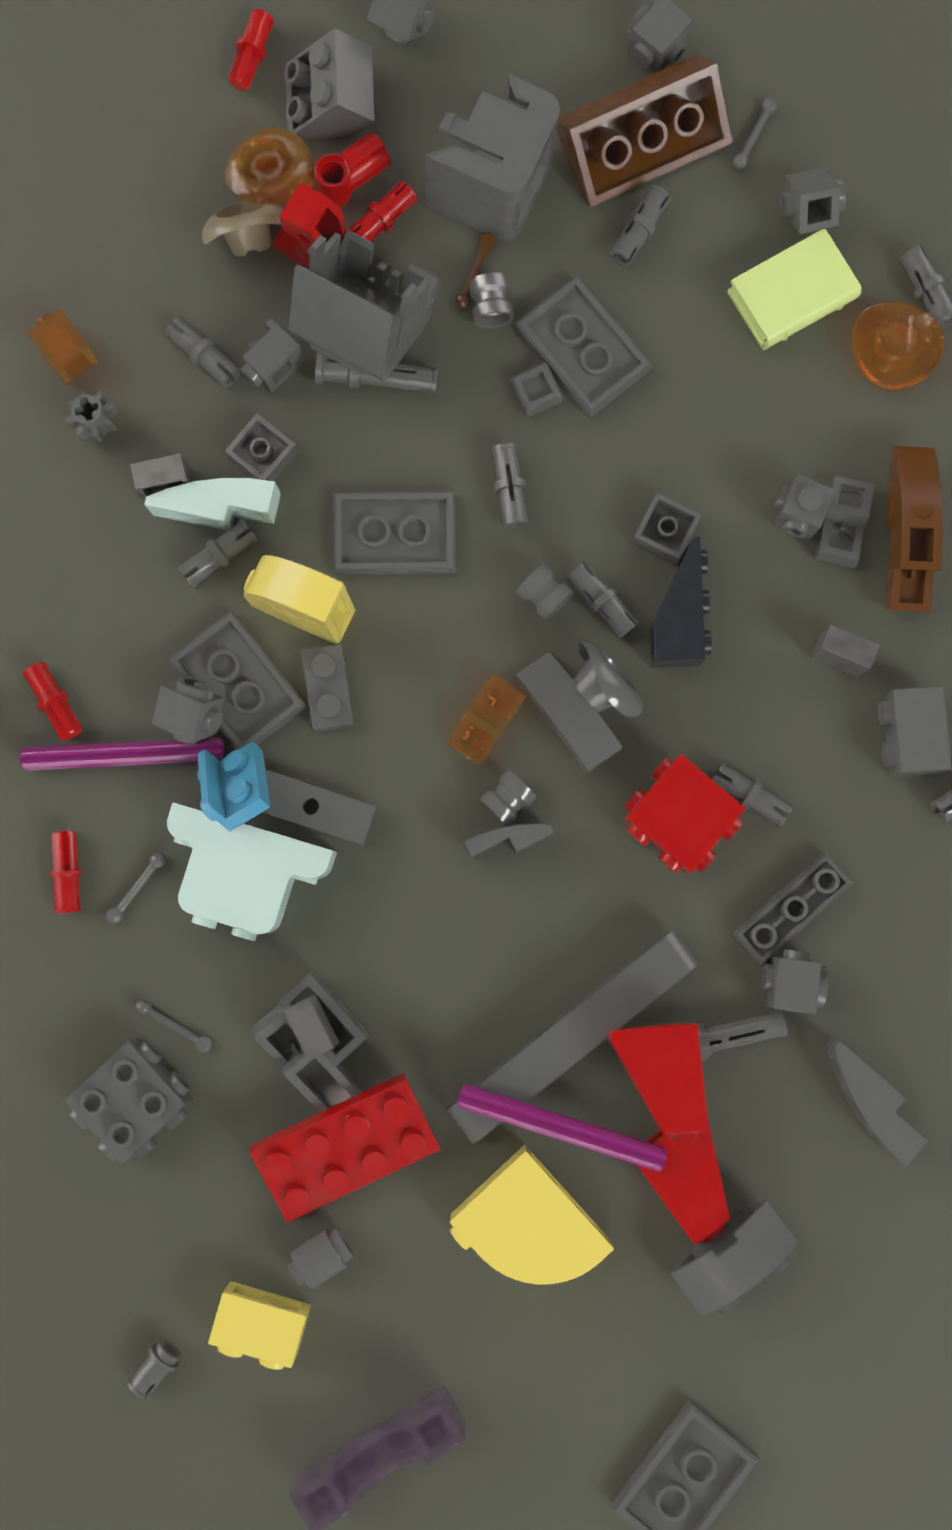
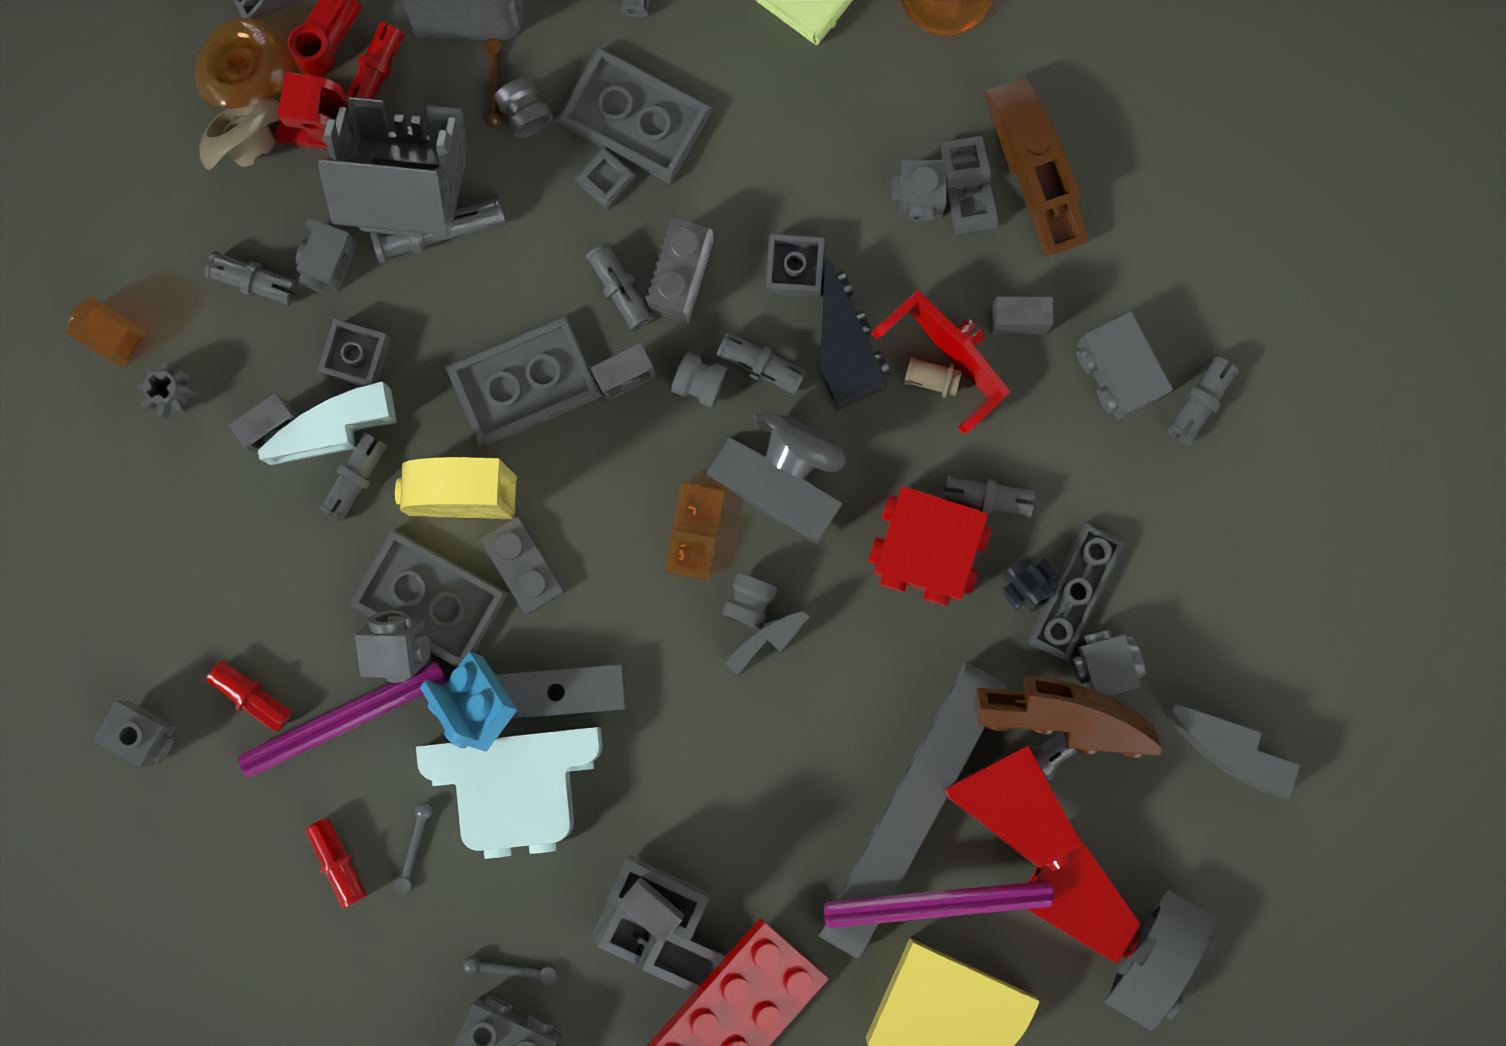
camera: 25 degrees left, 0 degrees up
(482, 558) = (623, 372): none -> flat silver piece
(567, 492) = (680, 270): none -> flat silver brick
(746, 672) = (933, 376): none -> dark tan pin
(756, 884) = (1030, 584): none -> black gear
(756, 1018) = (1084, 715): none -> reddish brown slope
(777, 655) = (957, 347): none -> red piece

